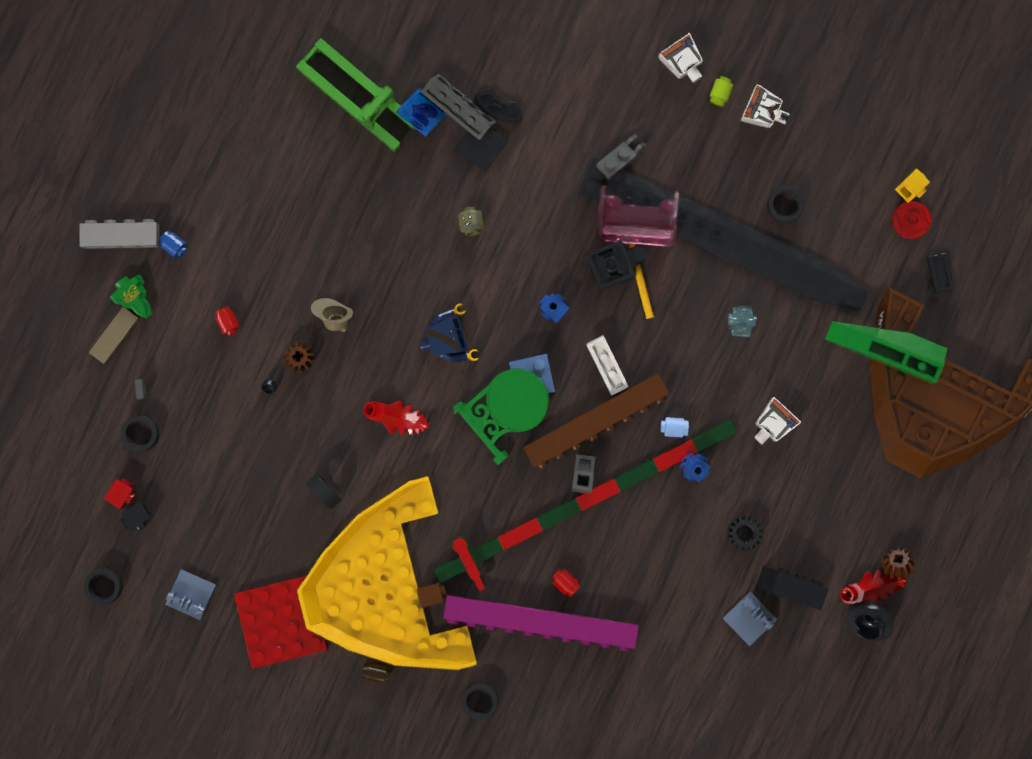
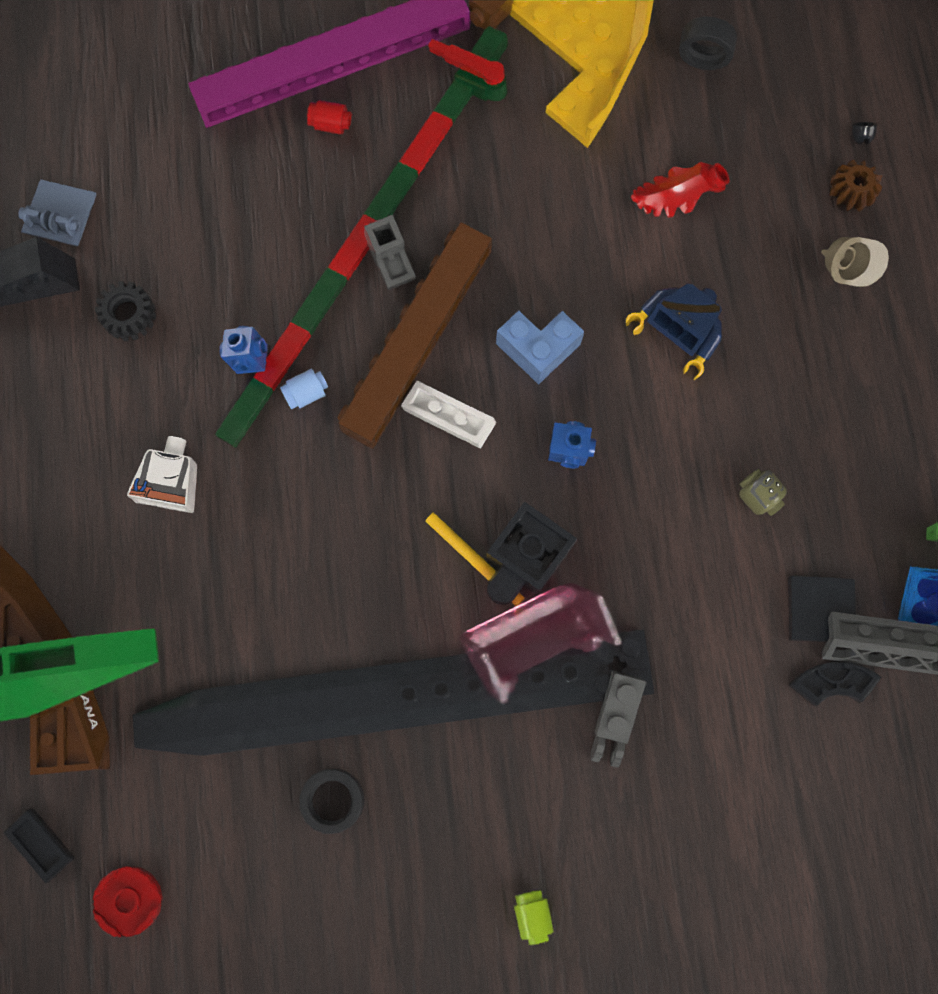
camera: 145 degrees right, 10 degrees down
(515, 402) = (539, 284): green piece -> none
(683, 58) = (622, 931): white torso -> none
(741, 321) = (295, 586): clear light blue brick -> none
(764, 108) = (451, 932): torso -> none
(913, 186) = (150, 956): yellow brick -> none

